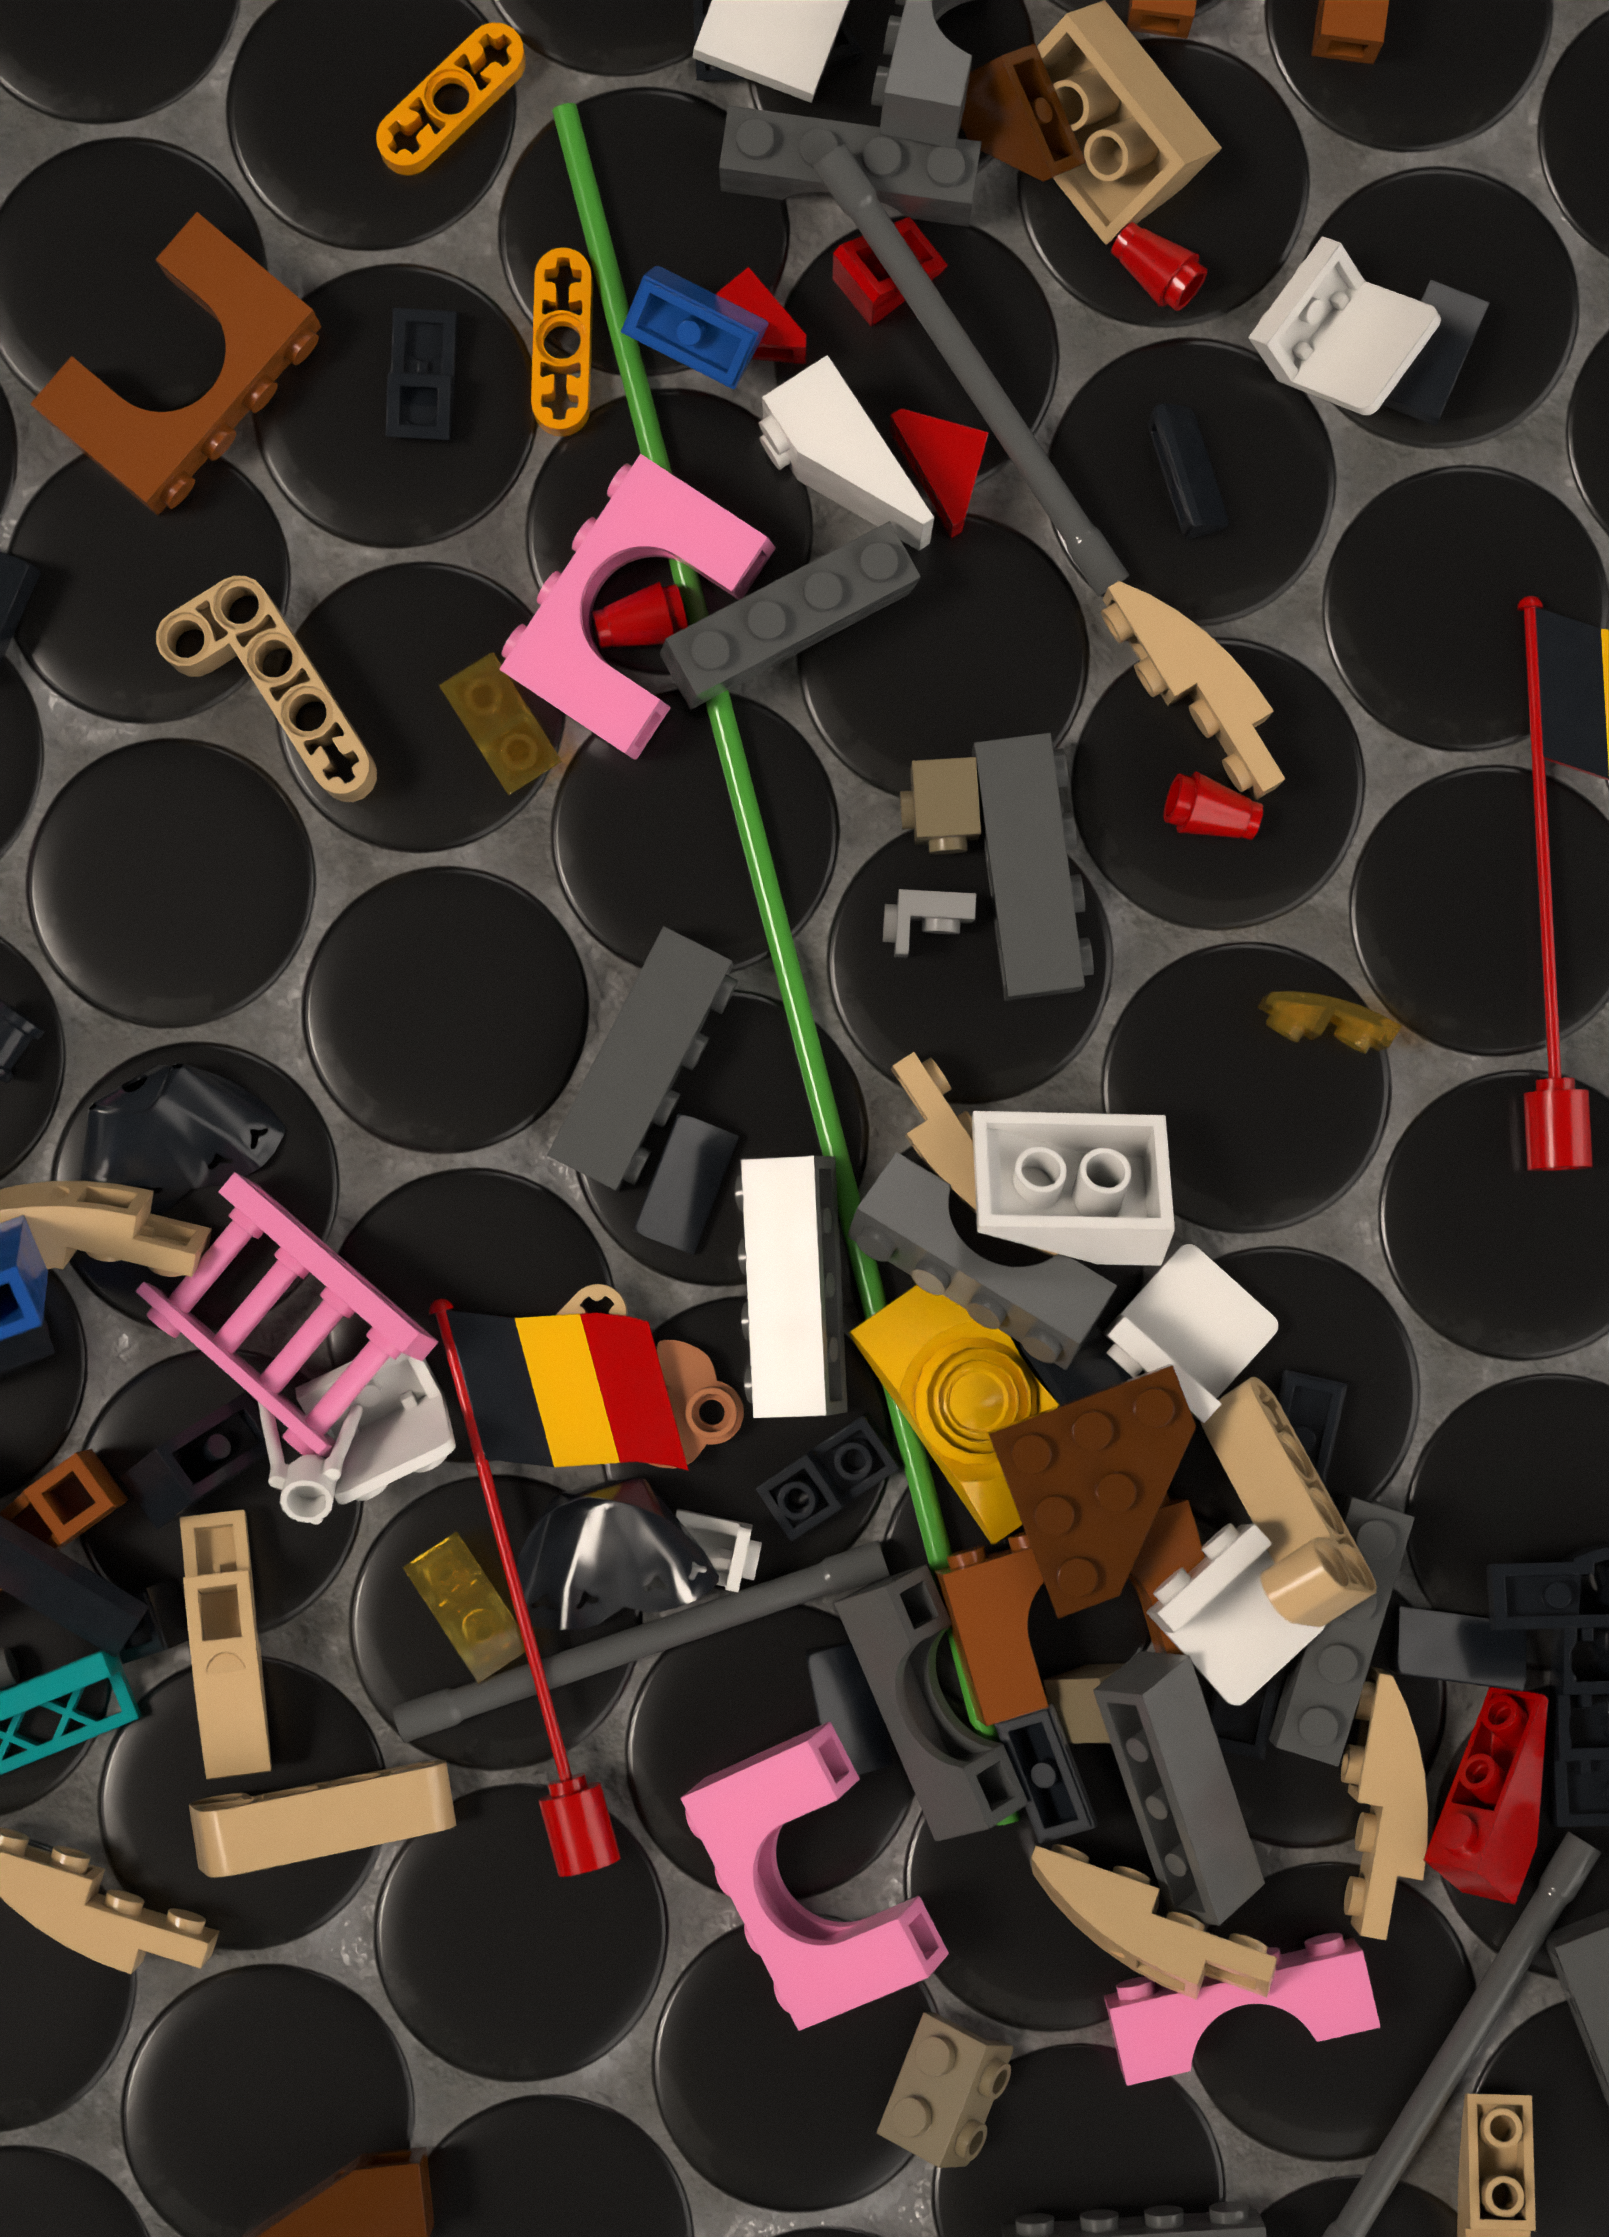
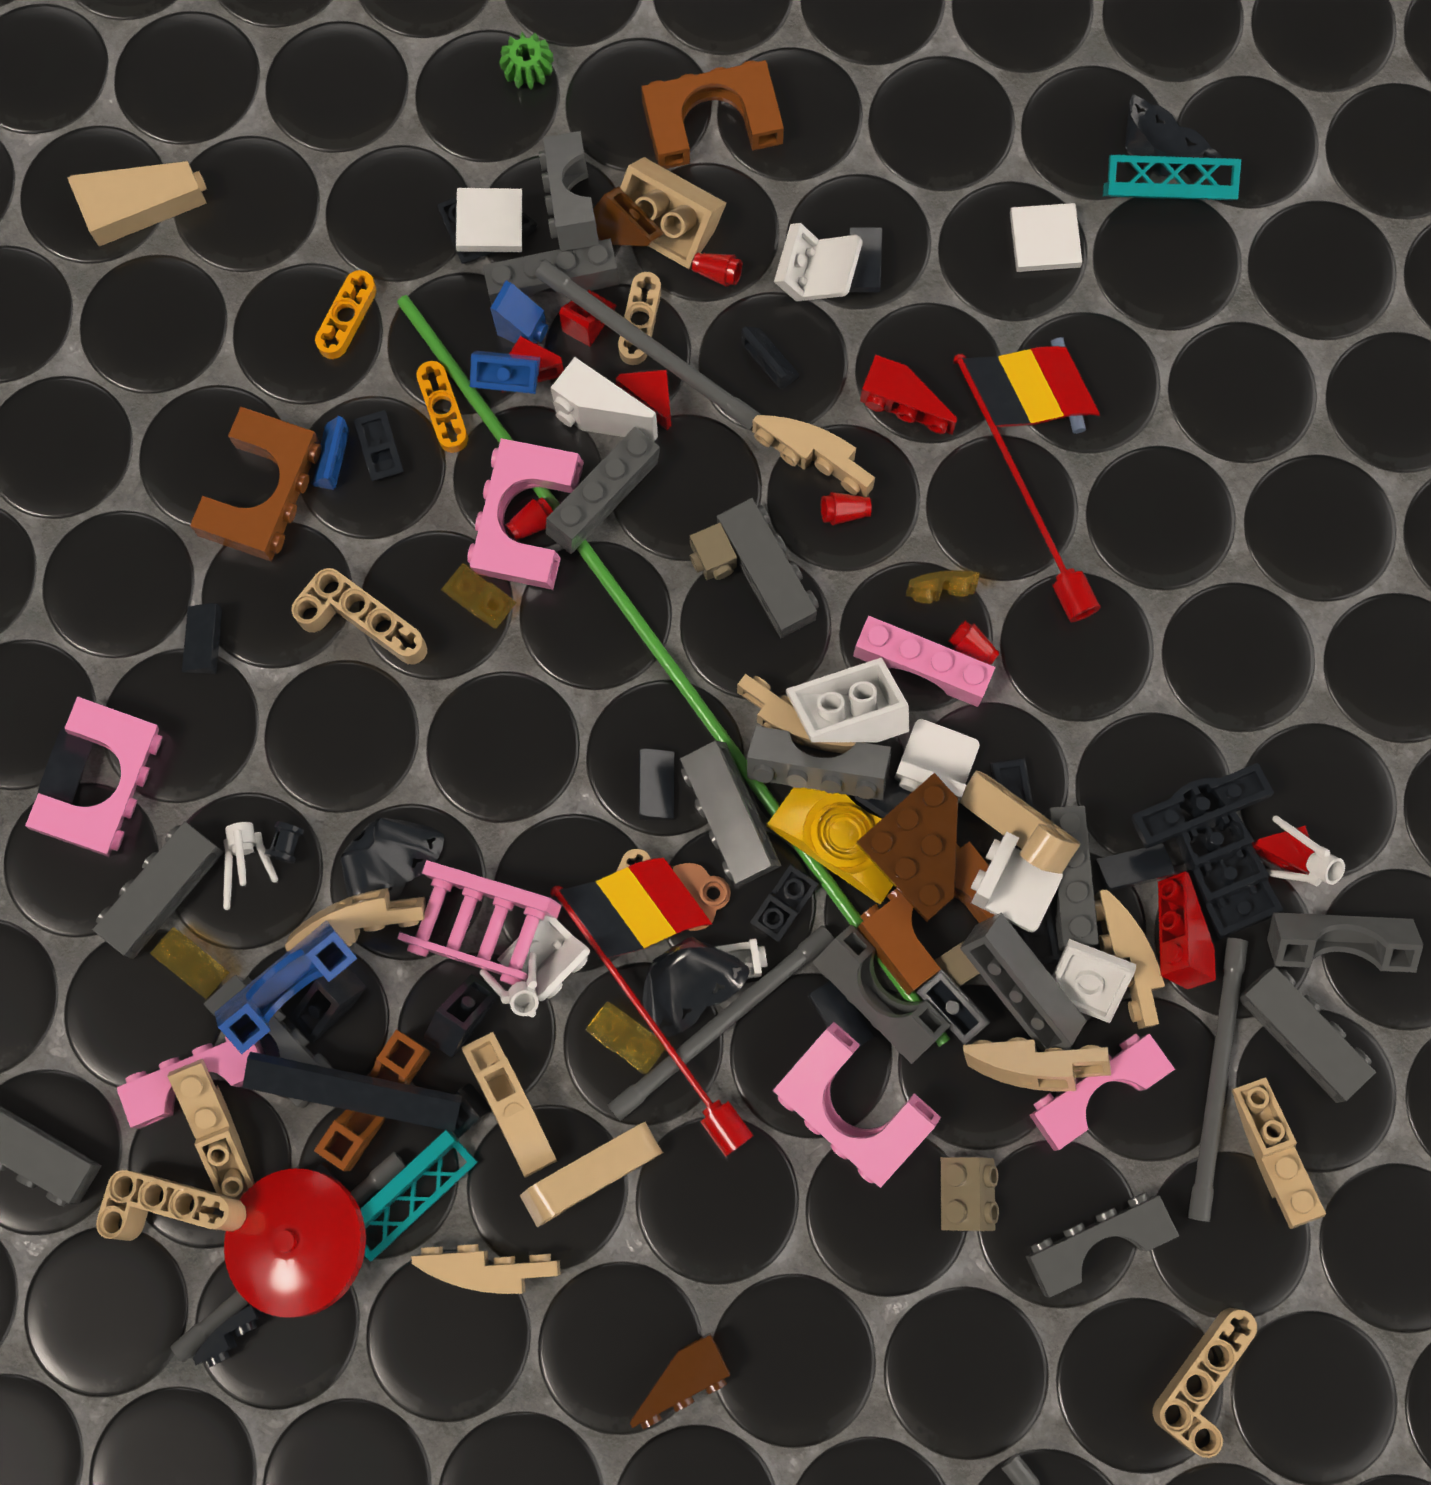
camera: 20 degrees left, 10 degrees down
(332, 359) = (332, 453): none -> blue slope
(641, 1060) = (611, 731): dark grey brick -> none
(759, 228) = (518, 315): none -> blue slope
(937, 910) = (729, 604): light grey bracket -> none
(991, 260) = (634, 305): none -> tan beam
(1241, 1145) = (950, 670): none -> bright pink arch
(1304, 1820) = (1093, 979): none -> white tile
(1340, 1145) = (973, 643): none -> red cone
(1397, 630) = (899, 391): none -> red slope

